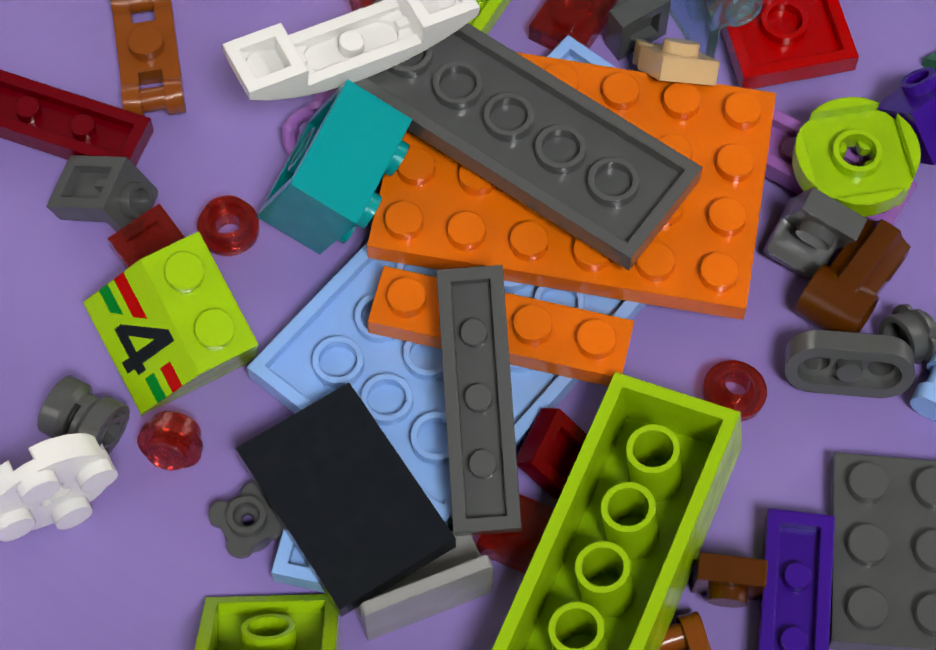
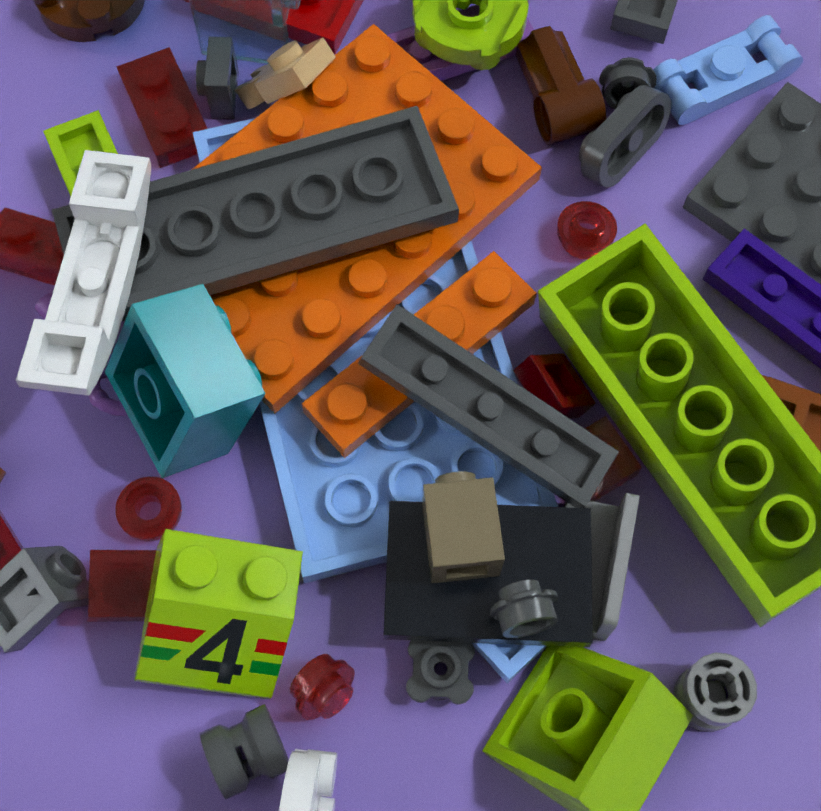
camera: 55 degrees left, 5 degrees up
(323, 532) = (524, 609): none -> dark grey plate
(354, 440) = (462, 528): none -> dark tan brick
(729, 579) = (751, 327): reddish brown plate -> none
(812, 231) = (499, 80): dark grey bracket -> none

